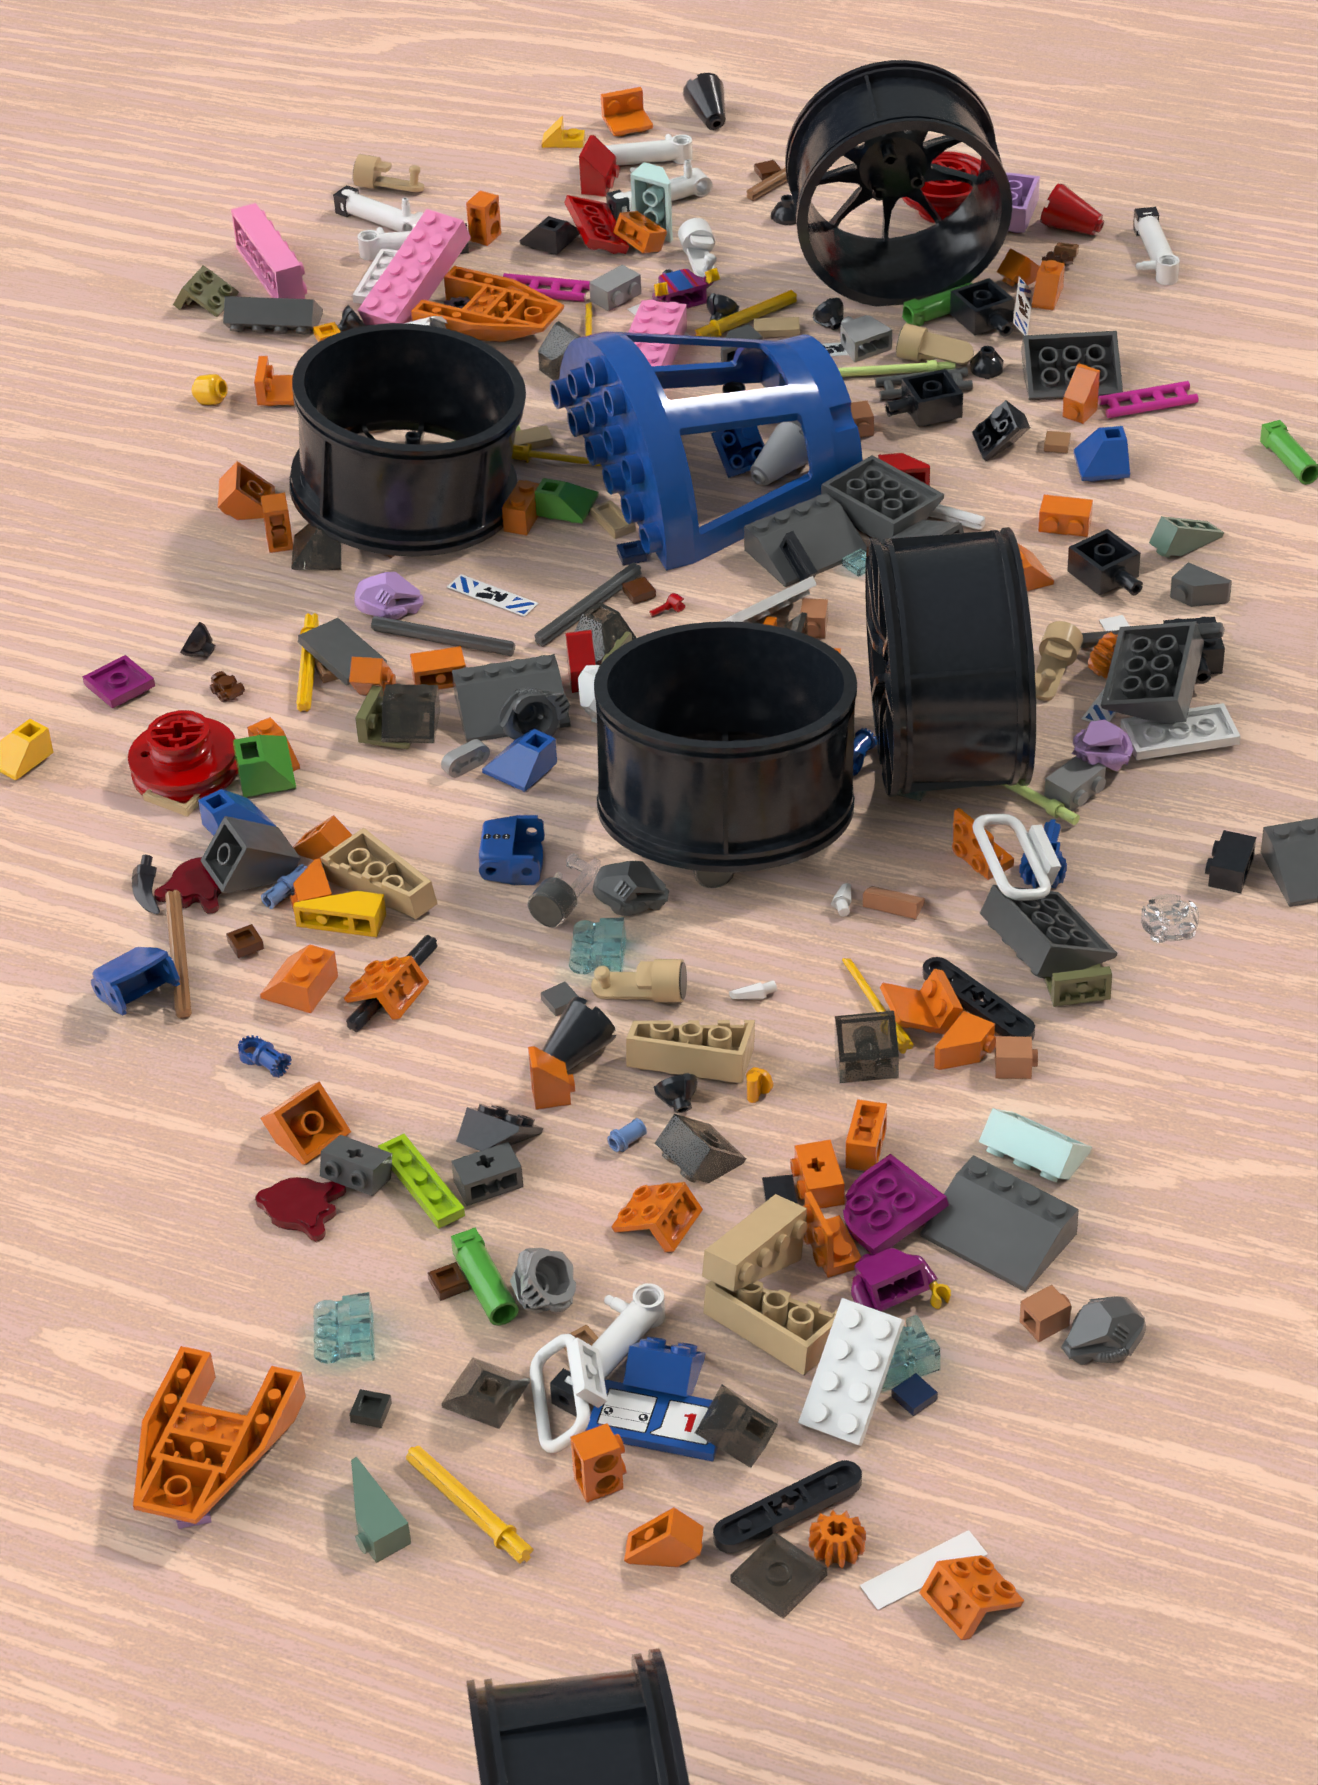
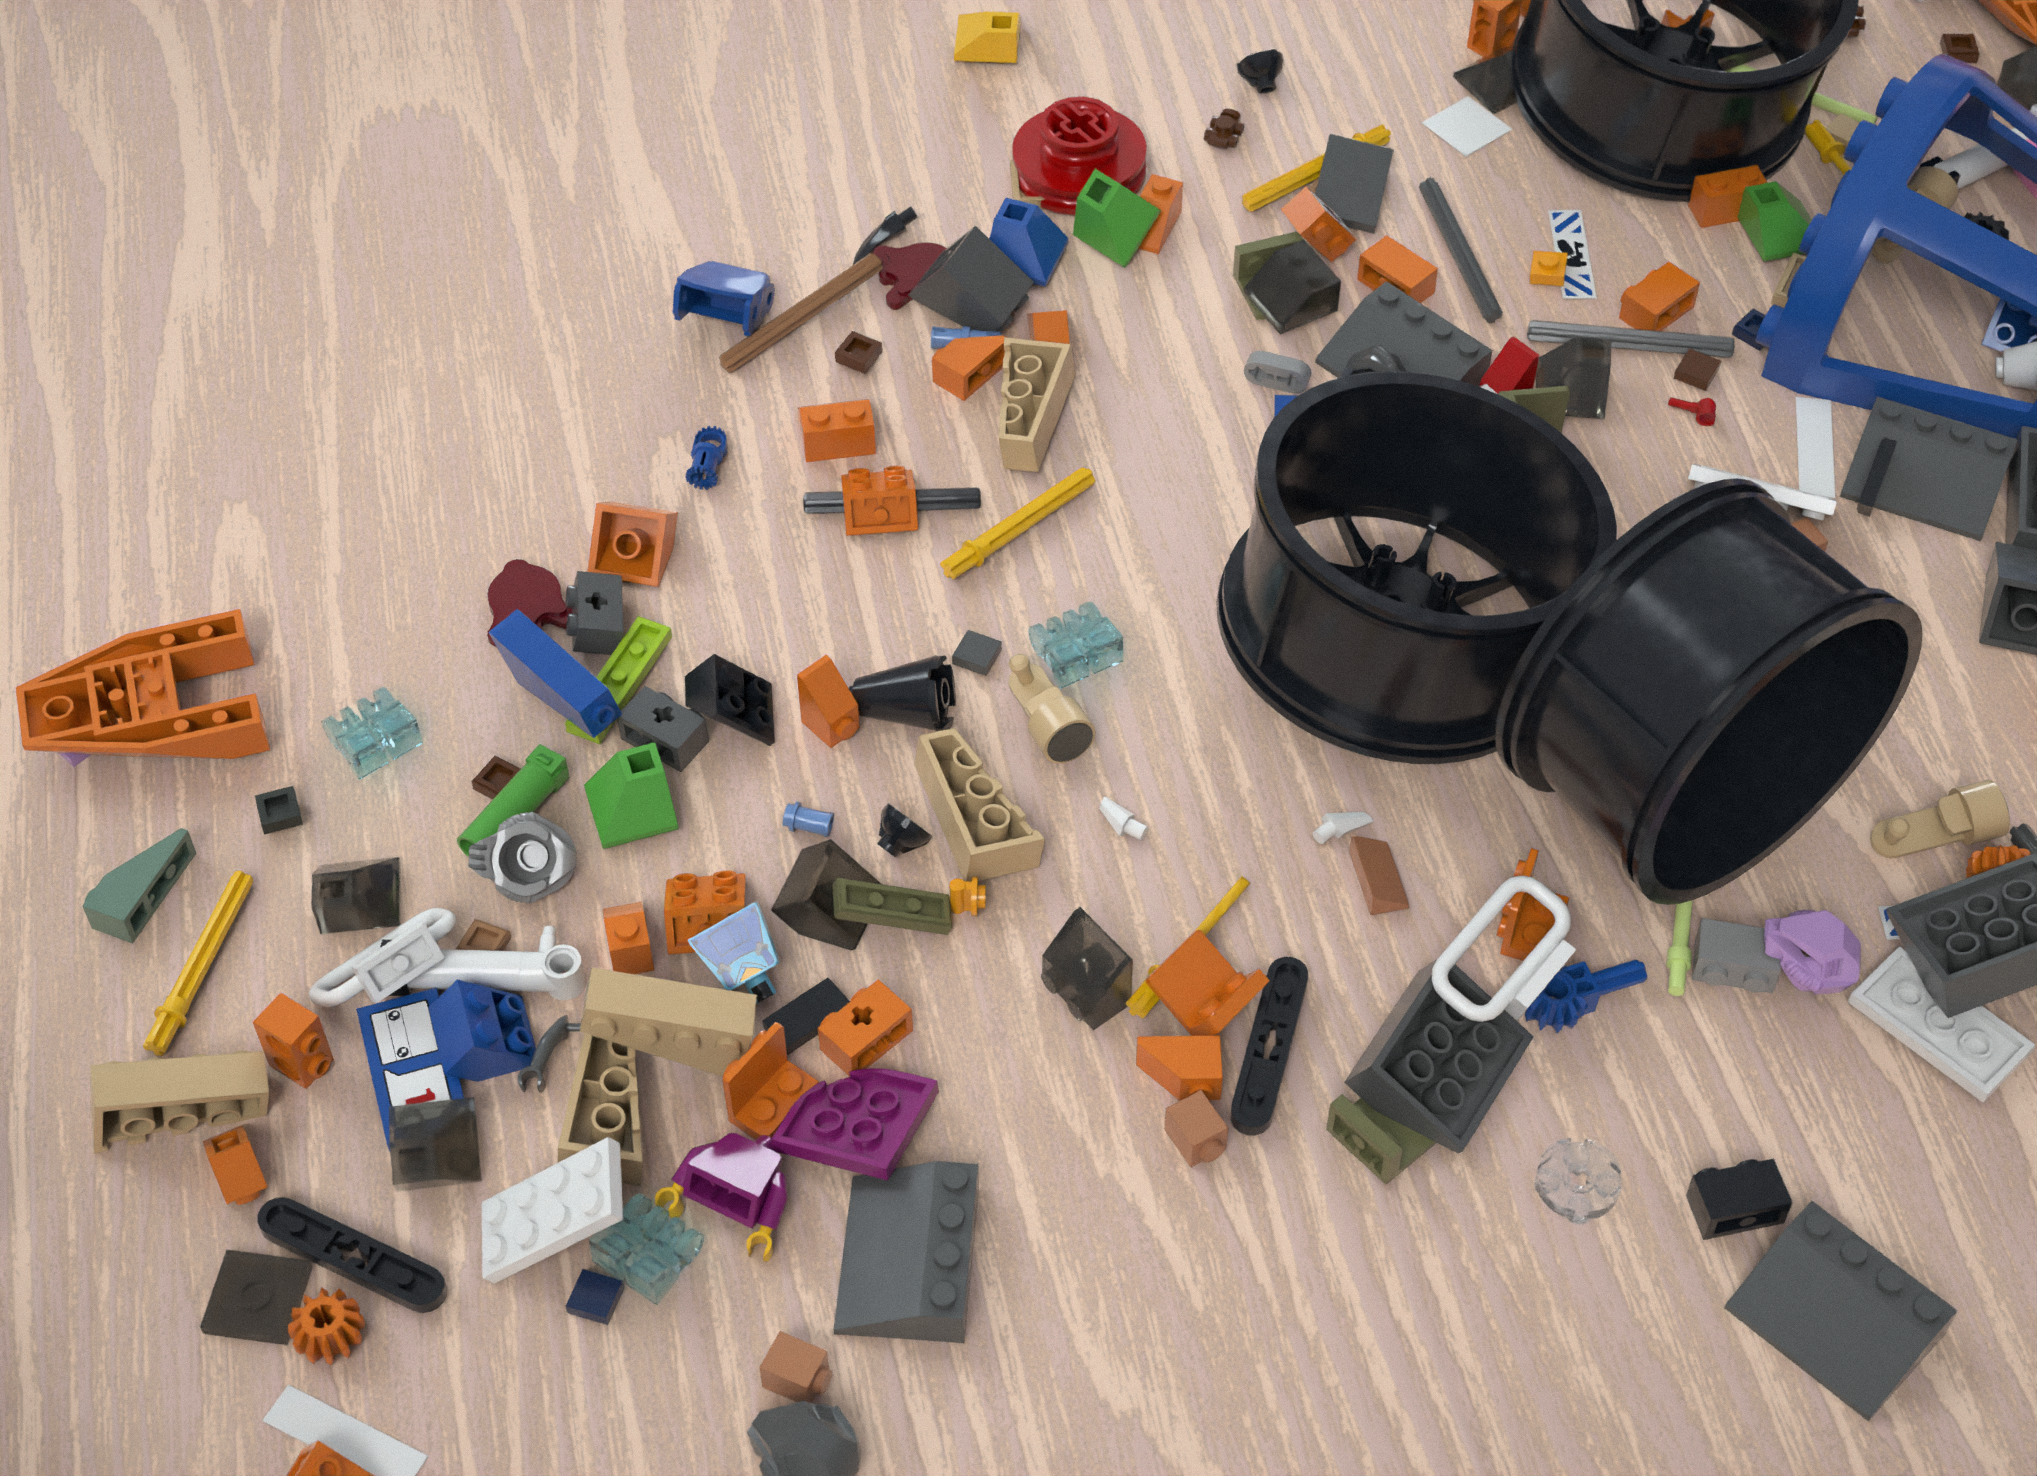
camera: 55 degrees right, 10 degrees up
(118, 681) = (1155, 48): magenta plate -> none
(336, 585) = (1466, 126): none -> white sticker
(343, 913) = (960, 406): yellow slope -> none
(378, 594) = (1471, 159): lavender helmet -> none
(405, 1199) = (554, 674): none -> blue slope
(478, 961) = (976, 551): none -> yellow axle
(497, 608) = (1548, 268): none -> light orange plate
(511, 852) = (1162, 487): blue piece -> none
(534, 1211) = (631, 797): none -> bright green slope
(557, 899) = (1108, 564): clear piece -> none
(572, 575) = (1659, 298): none -> orange brick
(582, 1555) = (174, 1095): none -> tan wedge
(620, 882) = (1184, 619): dark grey helmet -> none
(646, 1261) = (628, 938): none -> orange slope
(701, 1334) = (544, 1049): none -> dark grey piece
(713, 1201) = (740, 951): none -> torso
(738, 1118) = (892, 906): none -> olive tile
(739, 576) = (1815, 446): none -> white sticker
(855, 562) = (1948, 540): clear light blue tile -> none
(866, 1135) = (949, 1041): orange brick -> none
(1033, 1145) = (1068, 1222): light aqua slope -> none

